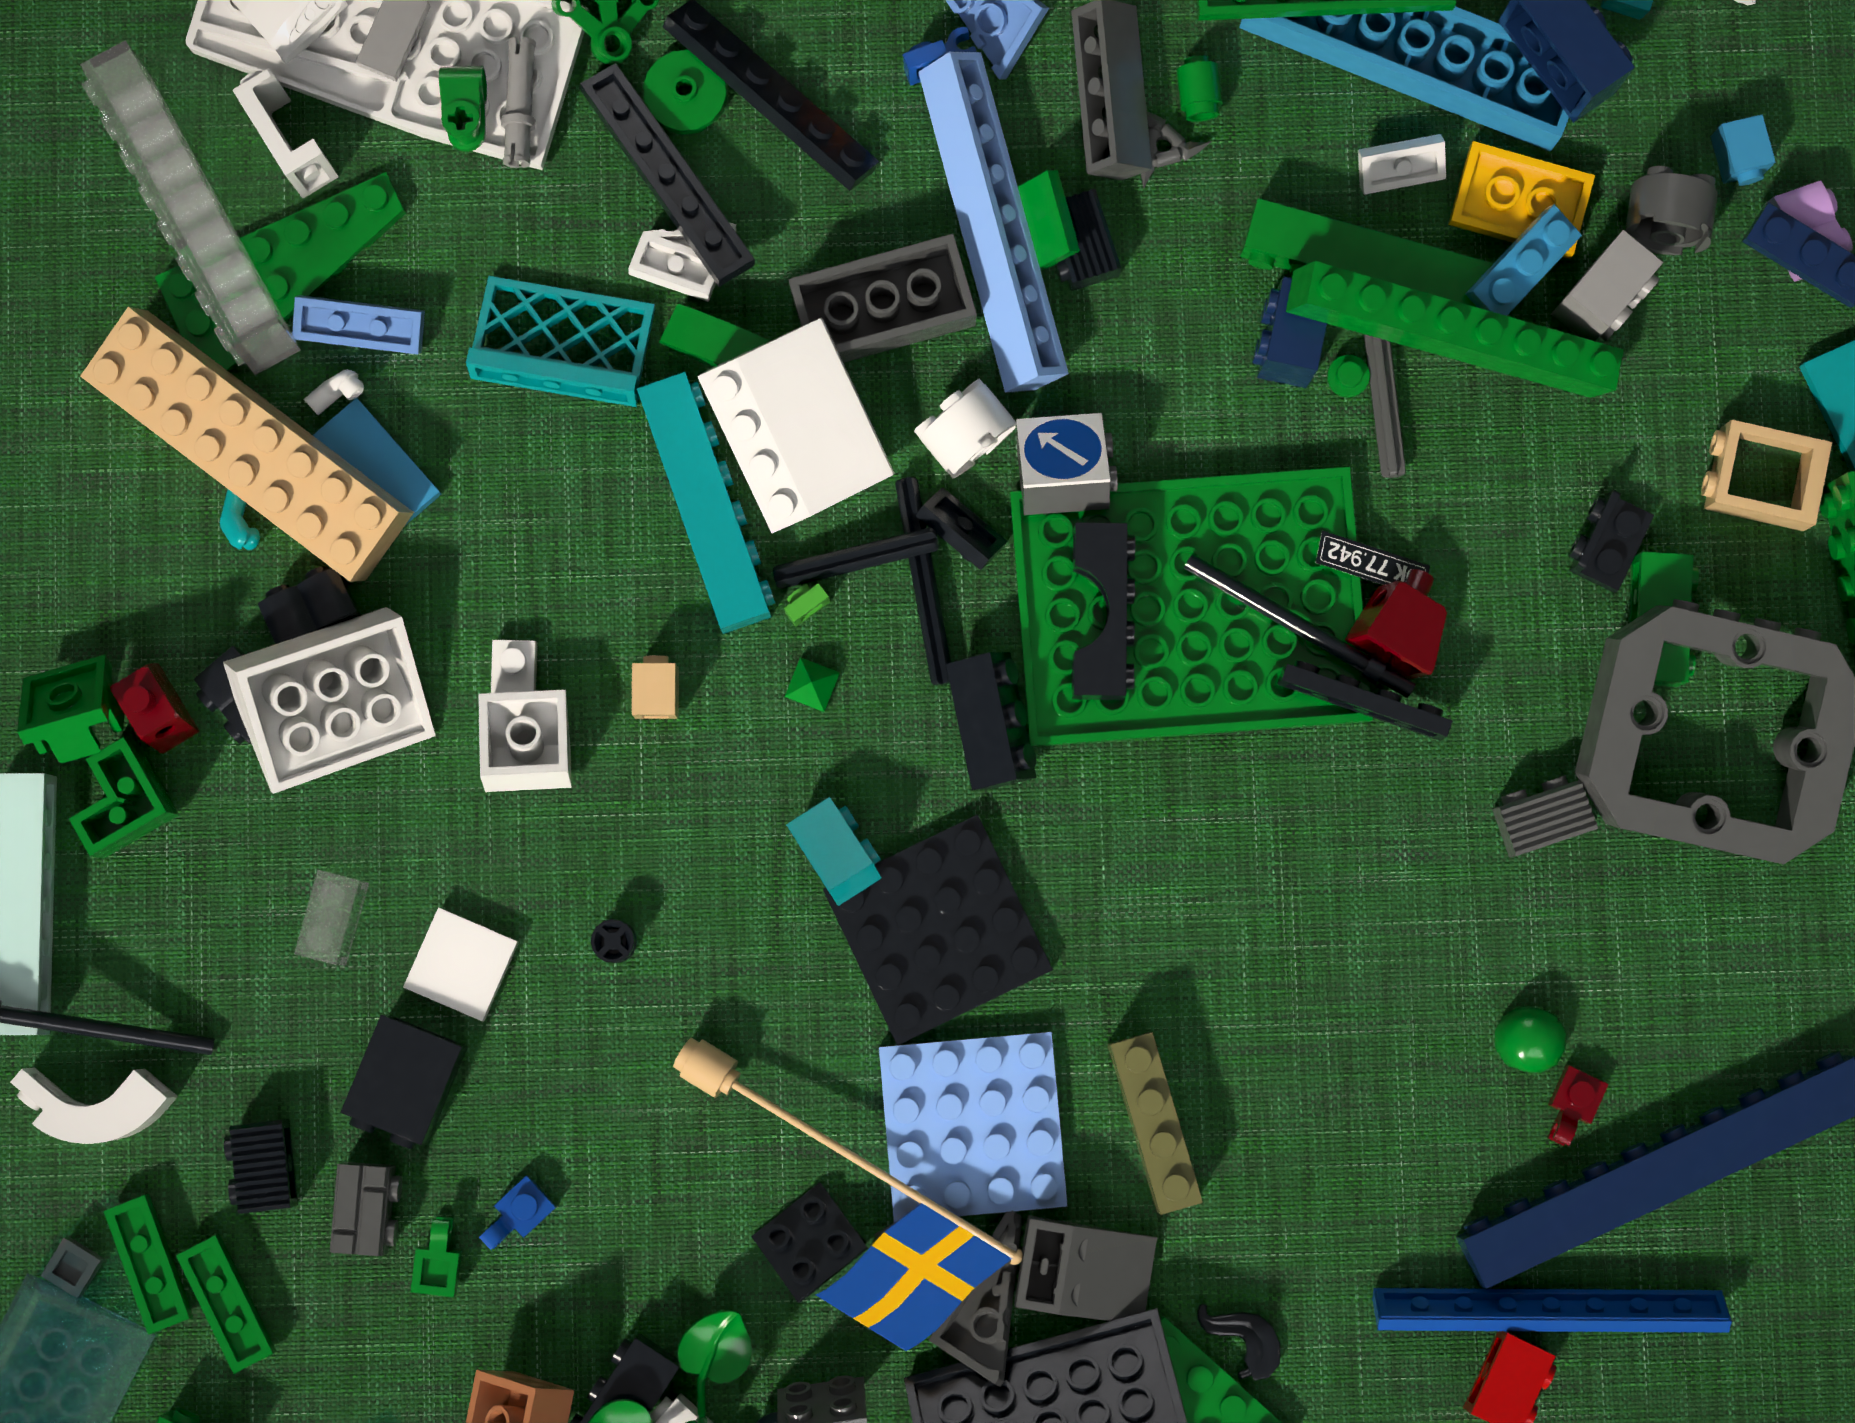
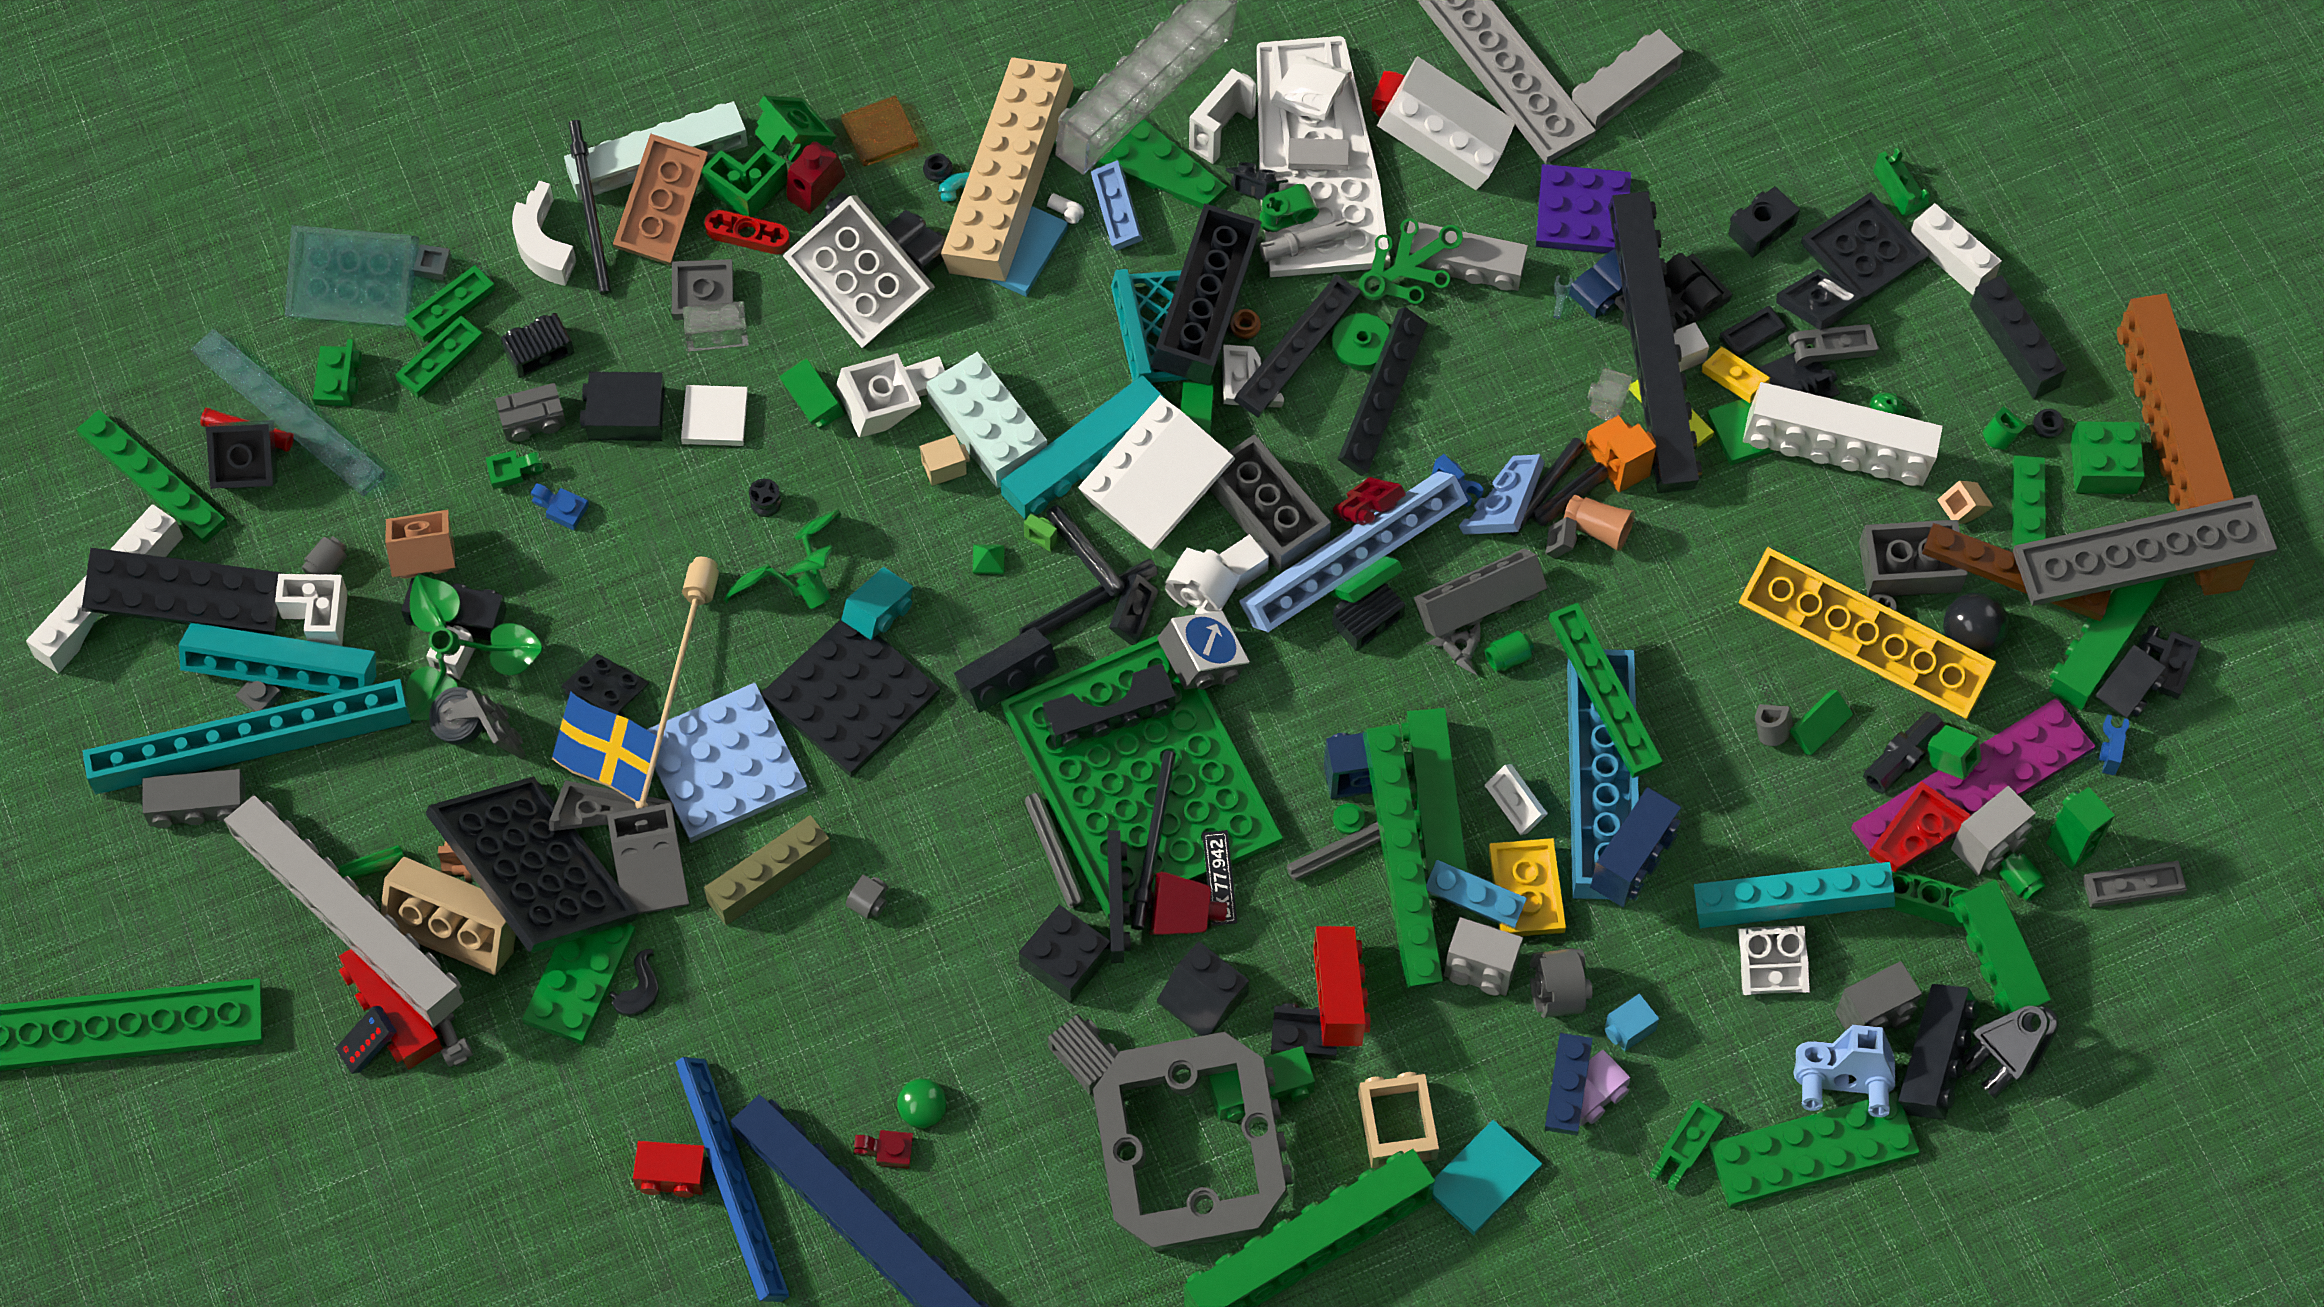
camera: 70 degrees right, 20 degrees down
(107, 925) = (660, 199): none -> nougat plate
(109, 593) = (879, 130): none -> clear orange tile
(186, 857) = (740, 221): none -> red beam
(192, 531) = (937, 167): none -> black plate
(261, 915) = (701, 284): none -> dark grey plate
(387, 139) = (1254, 181): none -> black hinge
(484, 827) = (811, 394): none -> green hinge
(550, 259) = (1206, 294): none -> black brick
(592, 220) = (1245, 316): none -> dark orange plate
(615, 612) = (985, 417): none -> light aqua brick
(773, 927) = (811, 583): none -> green plant
(928, 162) = (1368, 497): none -> dark red plate
(948, 362) = (1246, 559): none -> white brick
(1237, 1008) = (868, 897): none -> dark grey plate
(1254, 752) = (1054, 850): none -> dark grey axle
(1406, 793) = (1064, 953): none -> black brick
(1516, 642) = (1203, 991): none -> black slope
(1587, 475) = (1339, 986): none -> red brick

